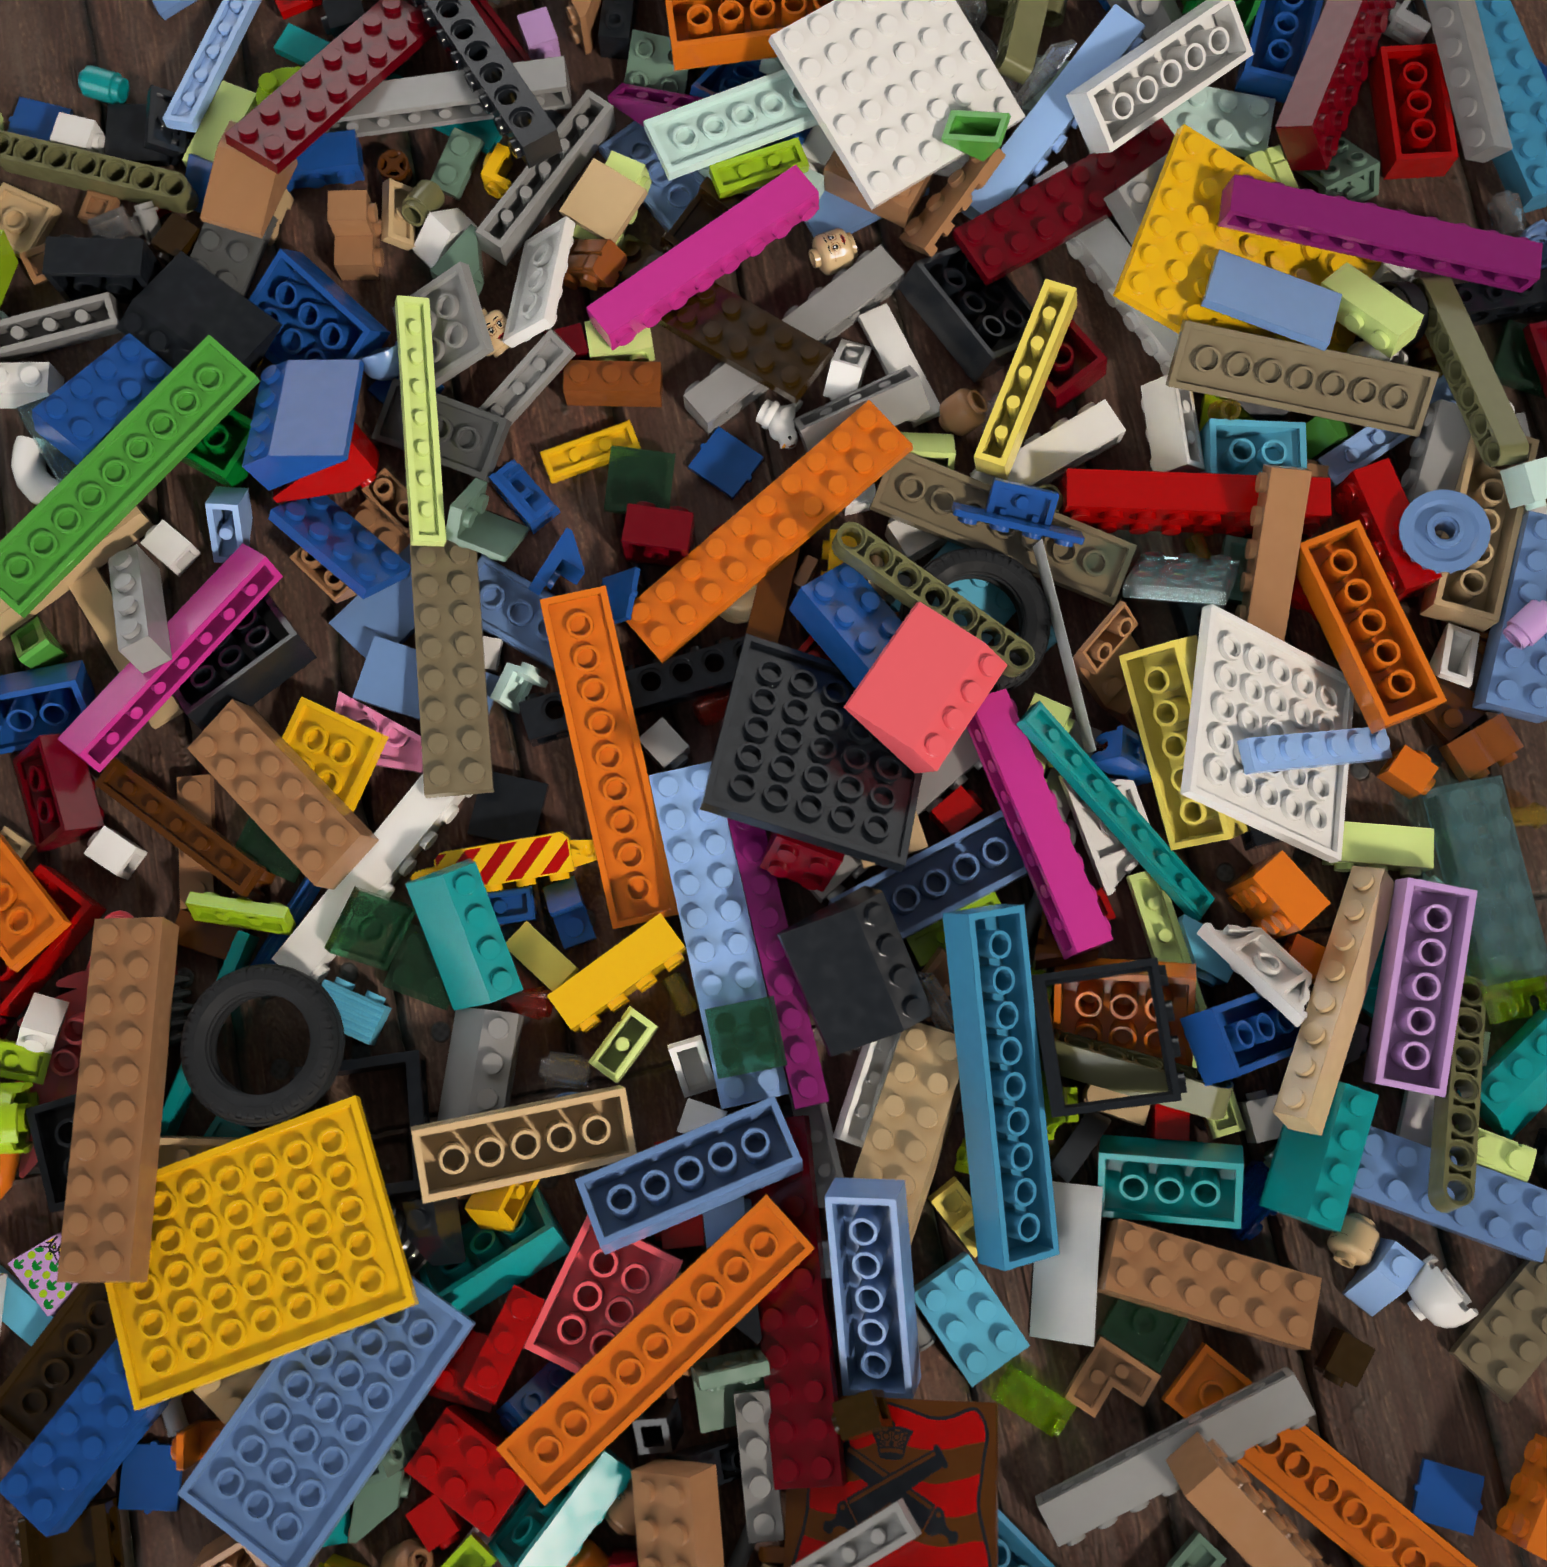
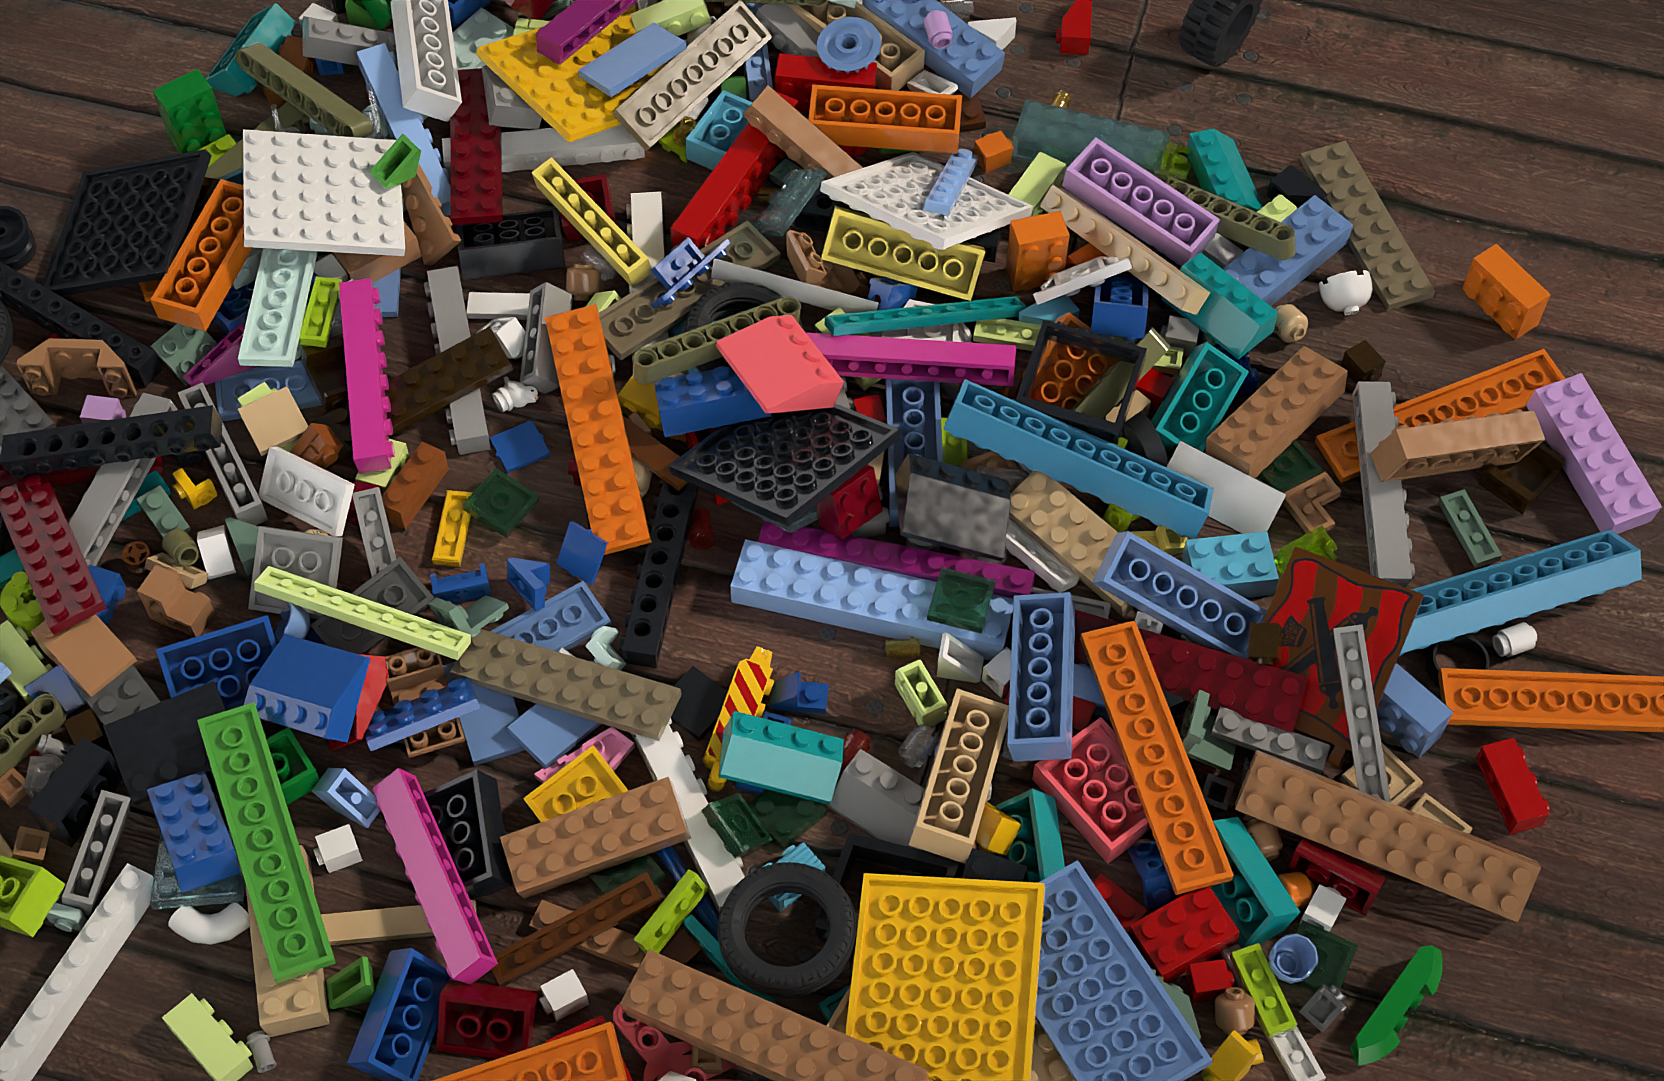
camera: 60 degrees left, 20 degrees down
(139, 609) = (382, 875): light grey brick -> none
(504, 1345) = (1104, 865): red brick -> none
(540, 956) = (832, 722): light yellow slope -> none
(609, 756) = (701, 605): orange plate -> none
(617, 974) = (867, 671): yellow brick -> none
(657, 534) = (553, 502): dark red brick -> none
(665, 746) = (712, 574): light grey brick -> none
(833, 251) = (408, 304): tan head -> none
(1171, 428) = (673, 167): white brick -> none
(1383, 1278) = (1322, 318): light blue slope -> none
(1447, 1496) = (1480, 352): blue piece -> none
(1482, 747) = (1000, 106): dark orange brick -> none

